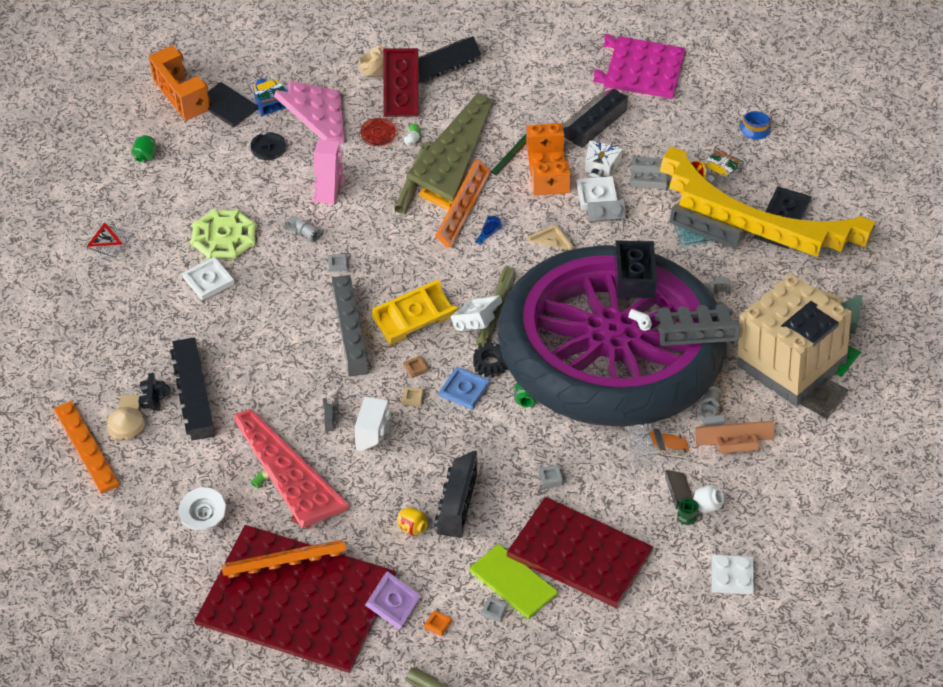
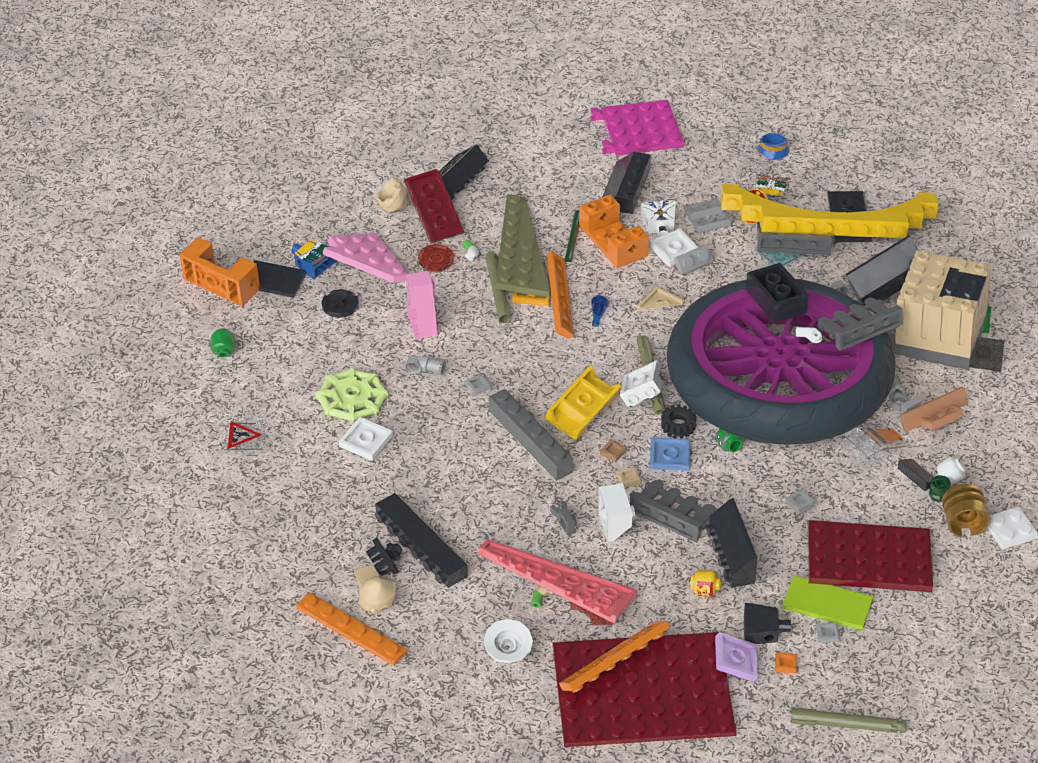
camera: 25 degrees left, 5 degrees down
(419, 439) = (667, 517): none -> dark grey fence
(437, 579) = (763, 624): none -> black torso
(693, 539) = (966, 508): none -> pearl gold wheel
(753, 282) = (884, 272): none -> slope

